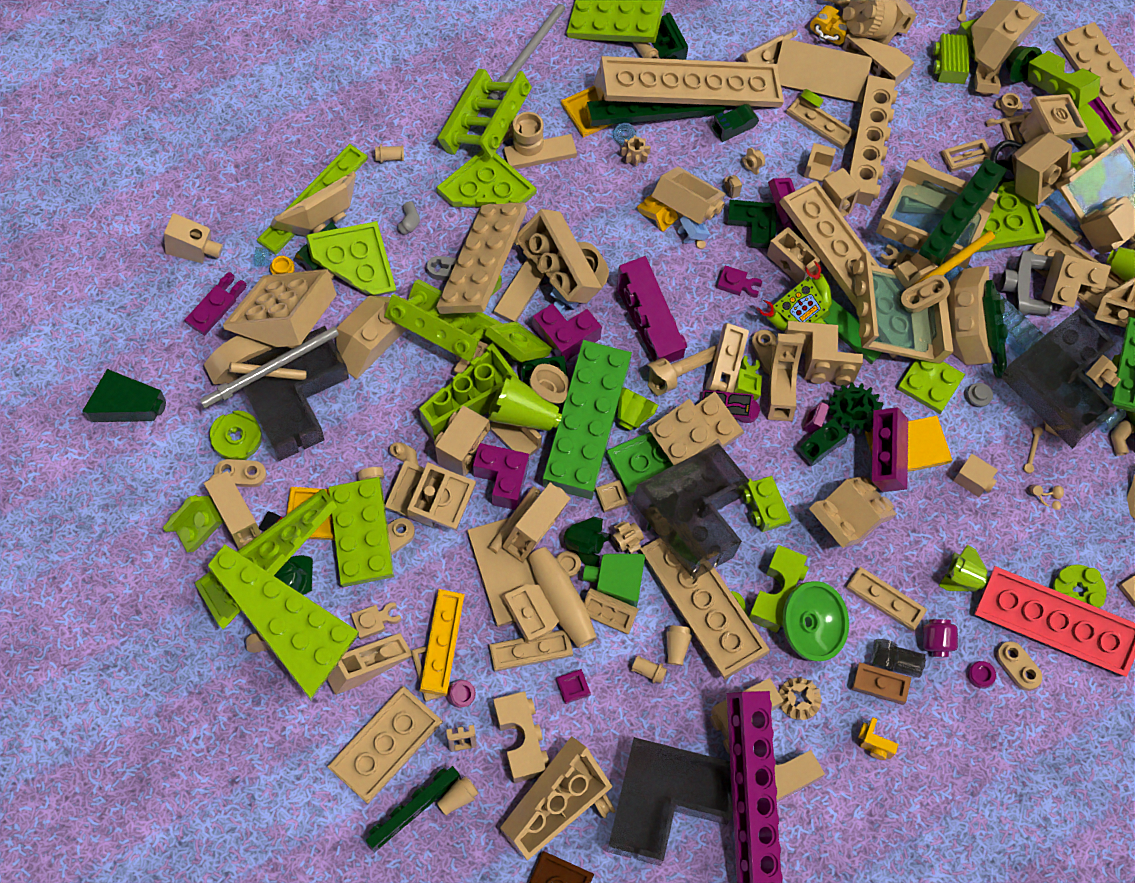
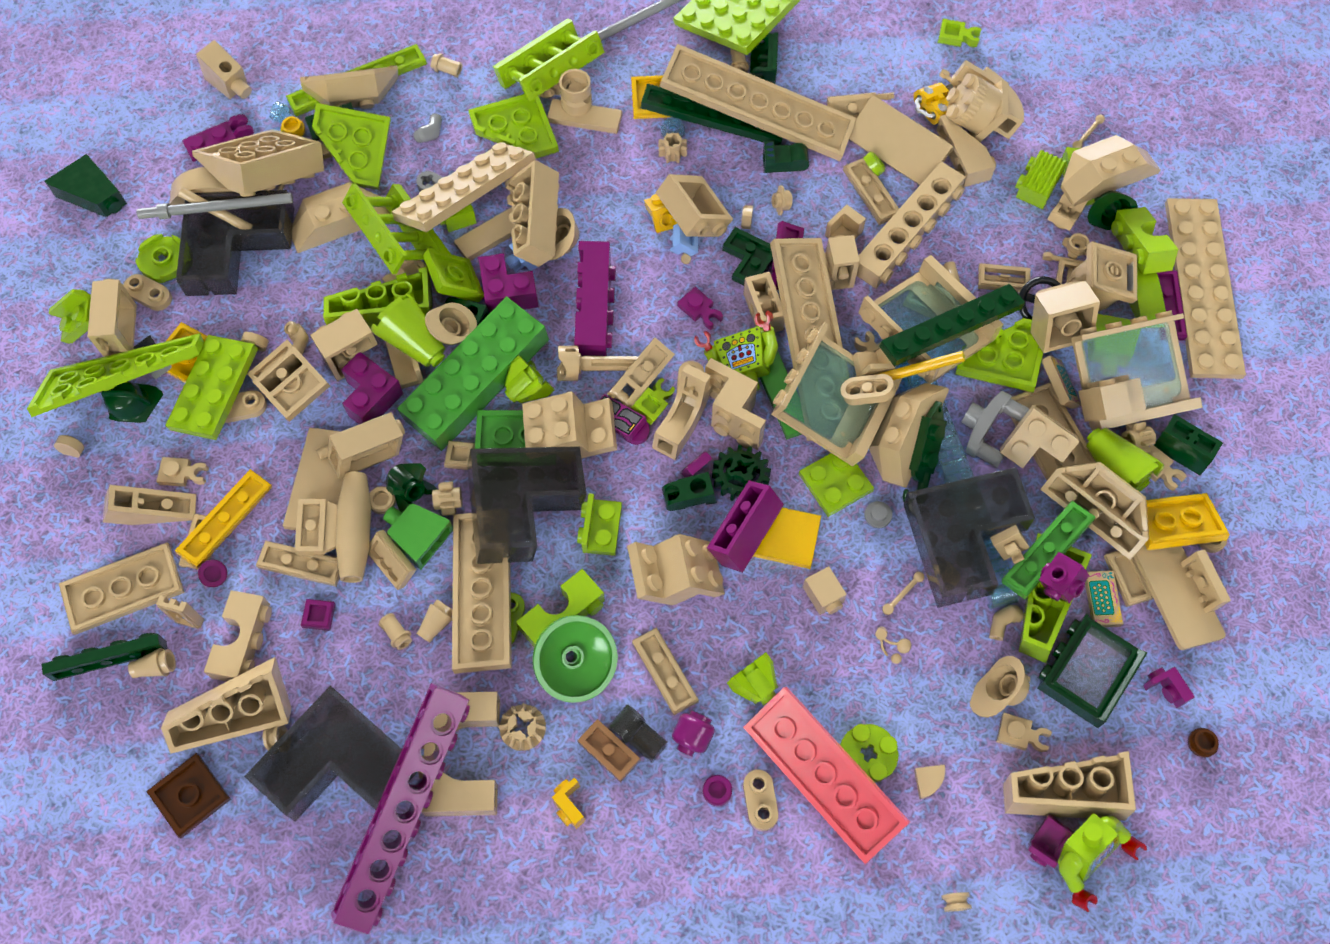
camera: 30 degrees right, 0 degrees up
(293, 626) = (87, 440): lime wing -> none

